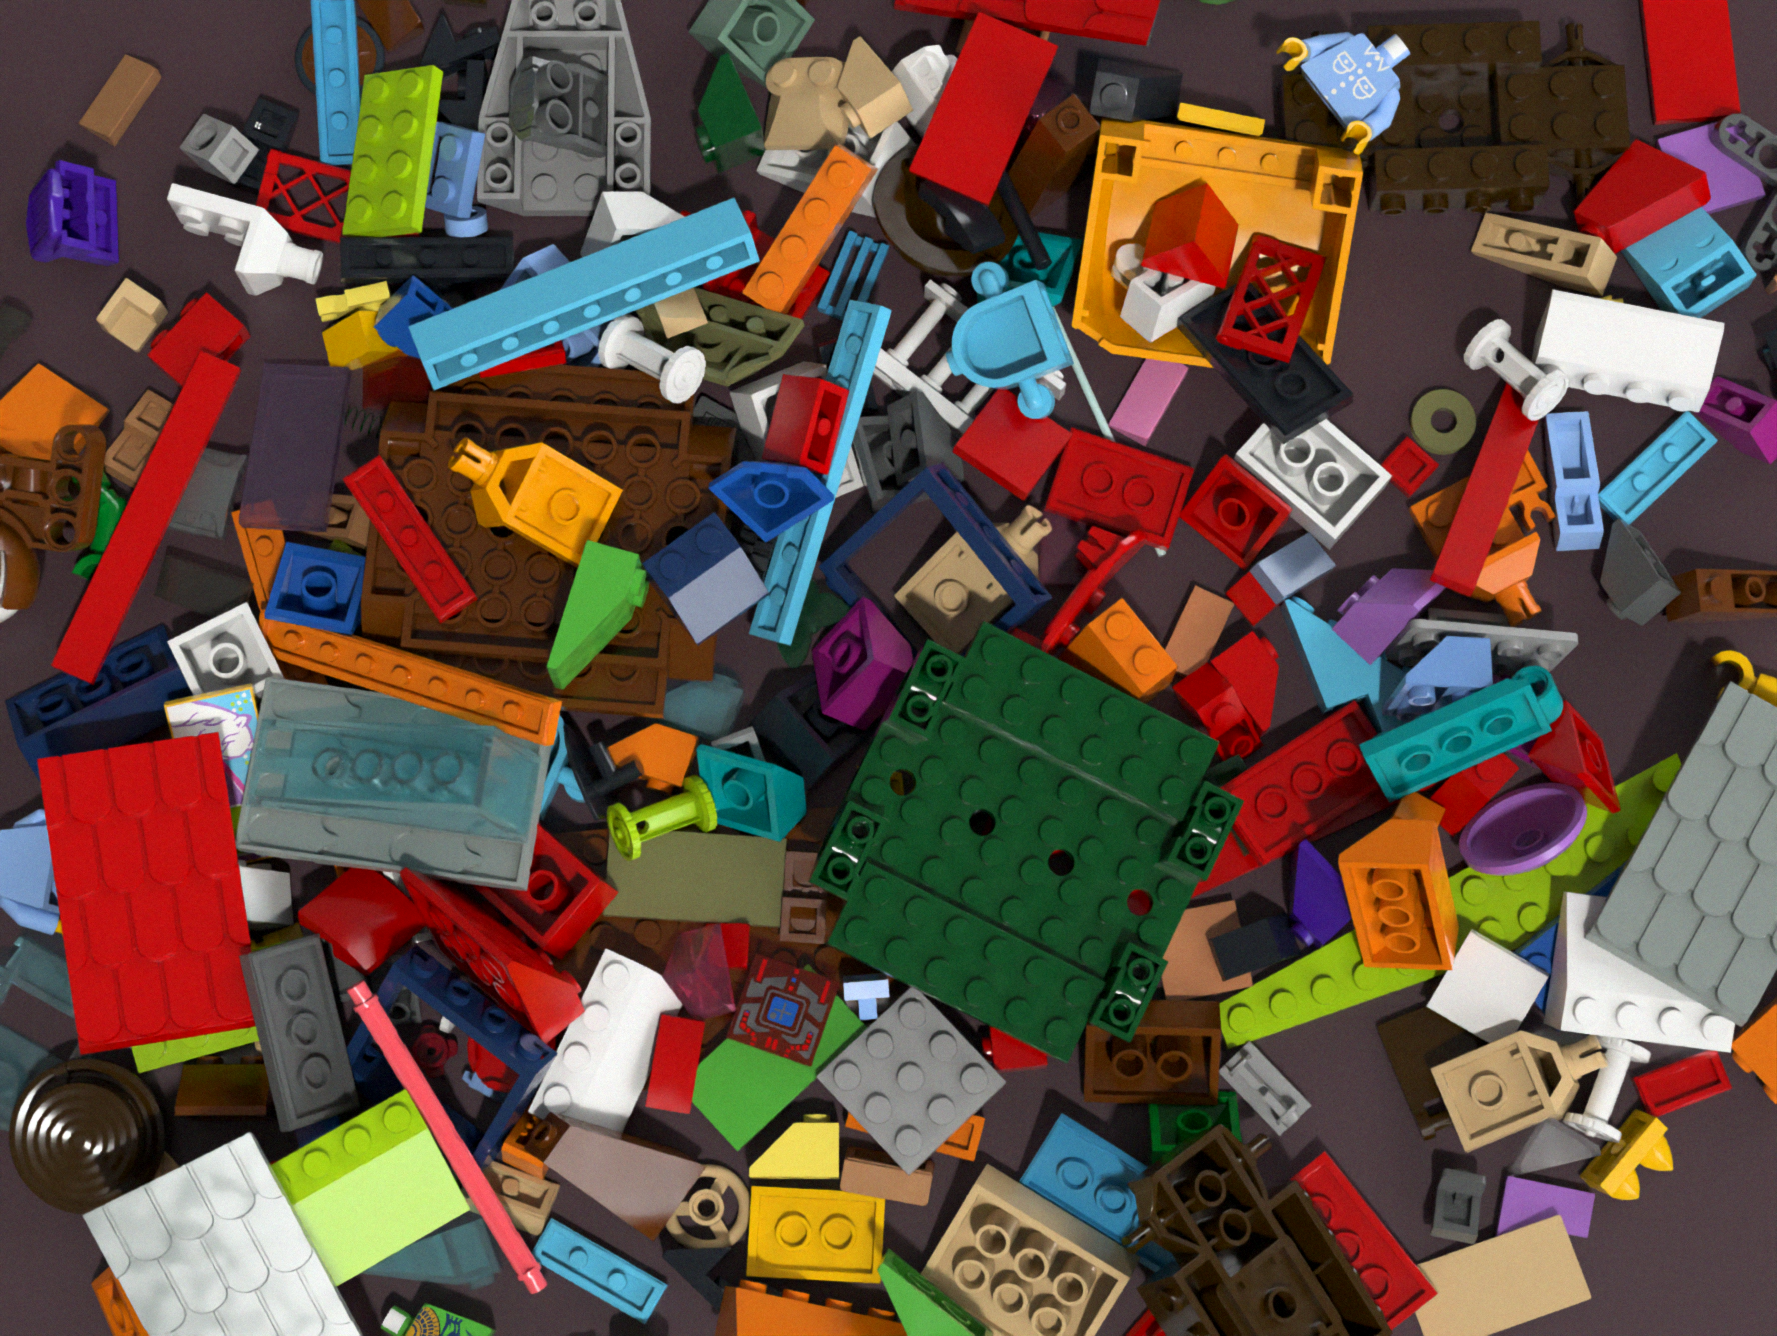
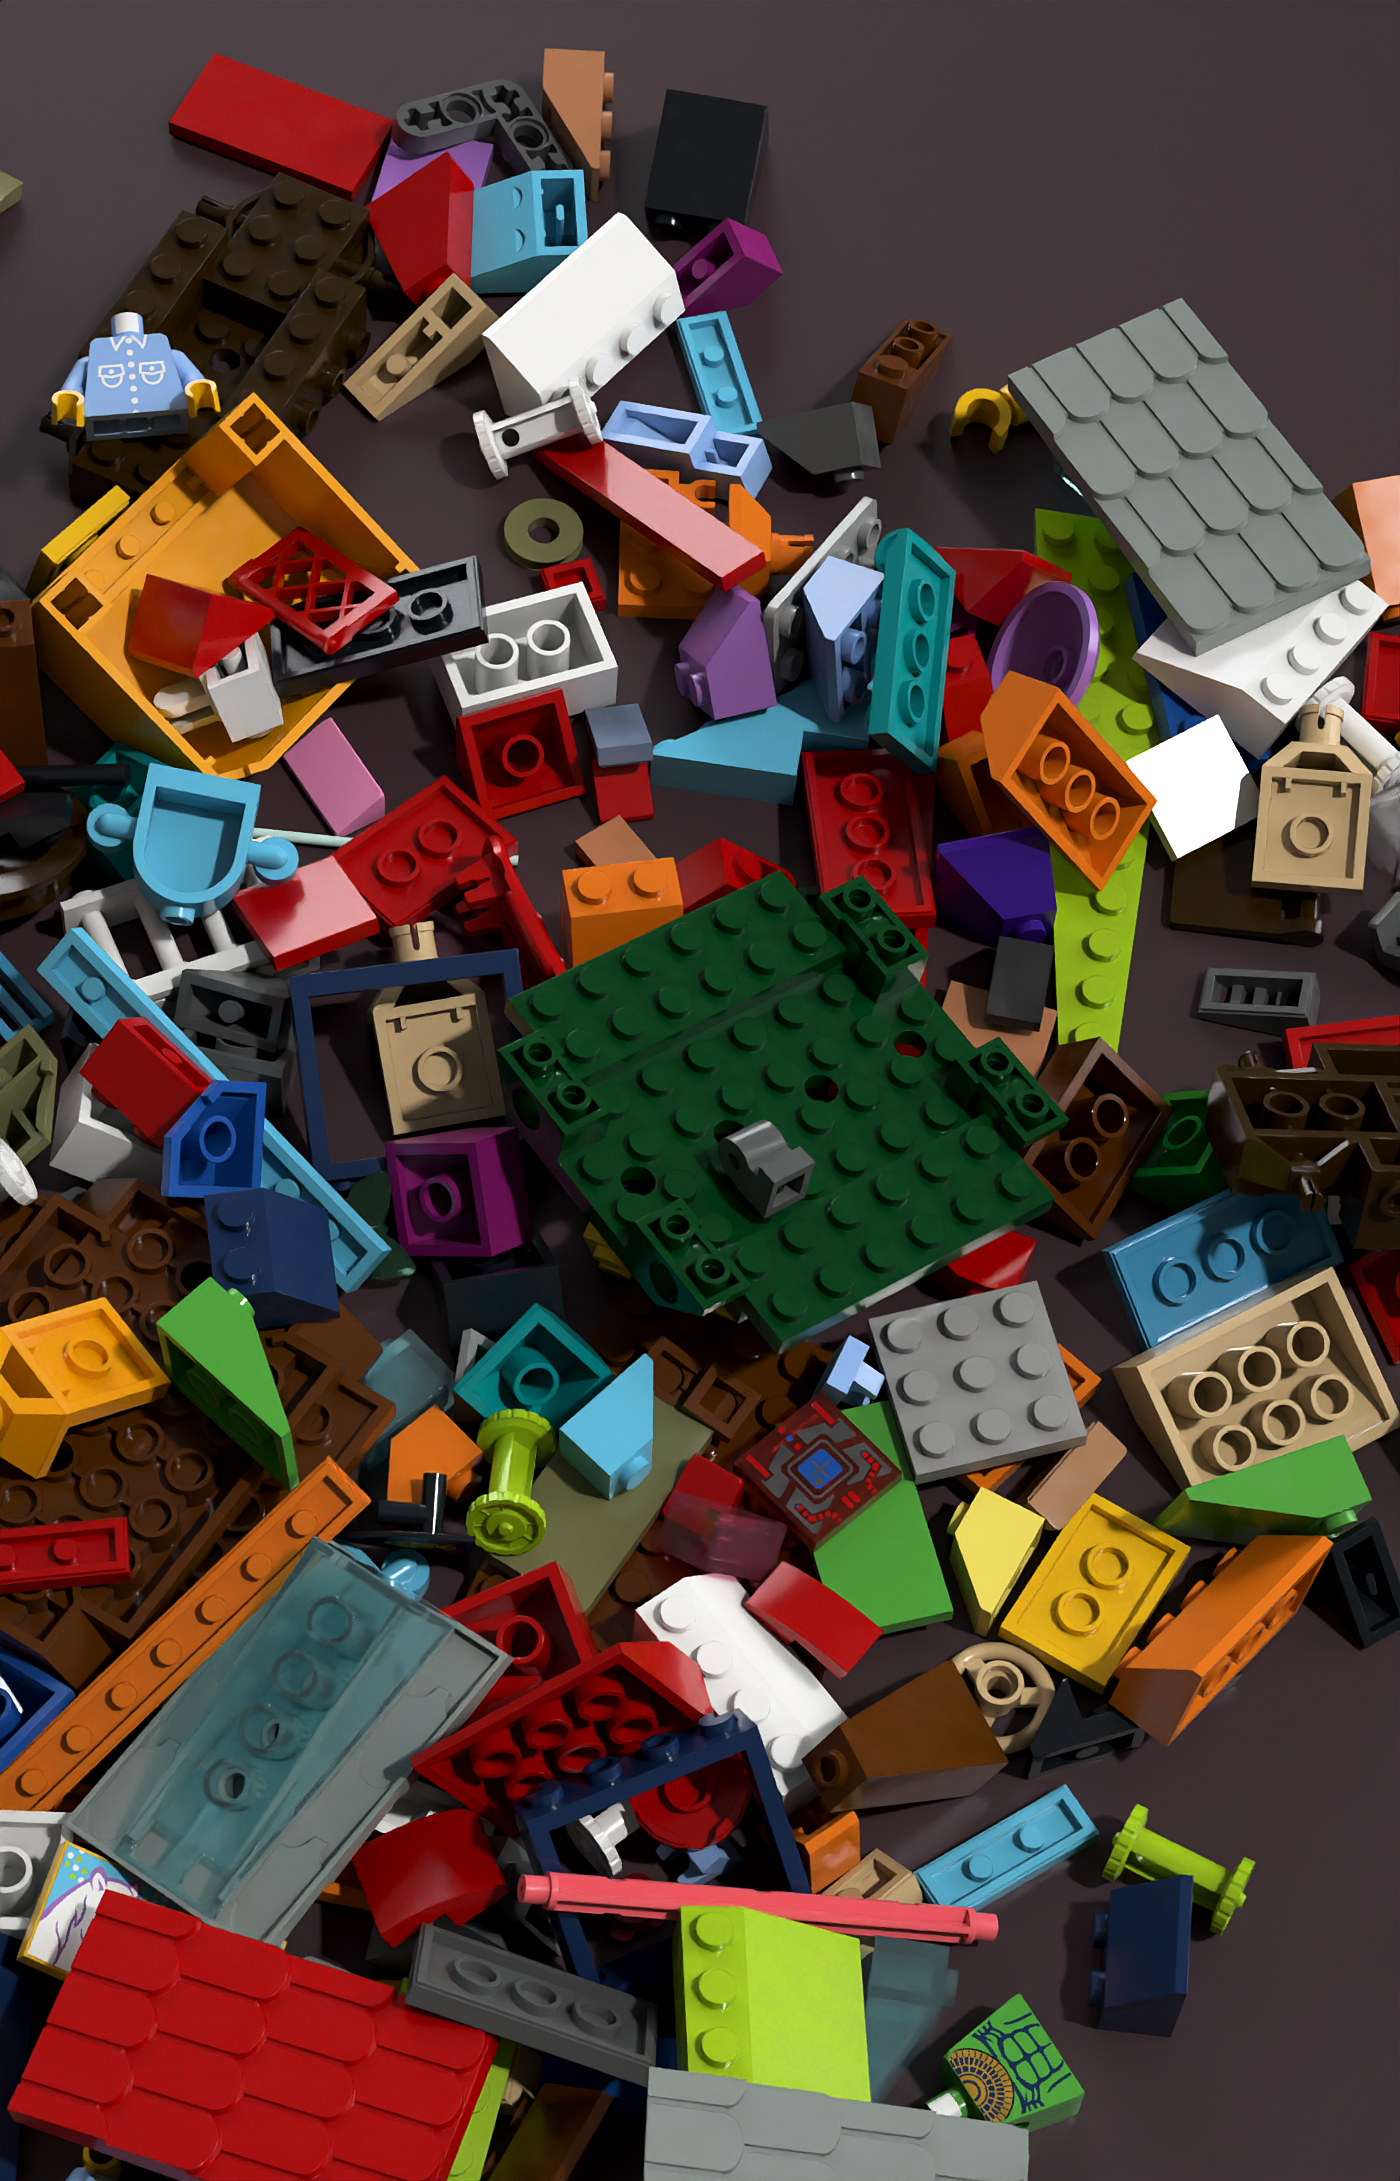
camera: 65 degrees left, 20 degrees down
(732, 866) = (614, 1432): none -> medium azure slope
(954, 860) = (762, 1162): none -> dark grey leg
(1253, 674) = (699, 820): red slope -> none
(1264, 1088) = (1181, 1056): light grey hinge -> none
(1358, 1157) = (1258, 1016): none -> dark grey slope

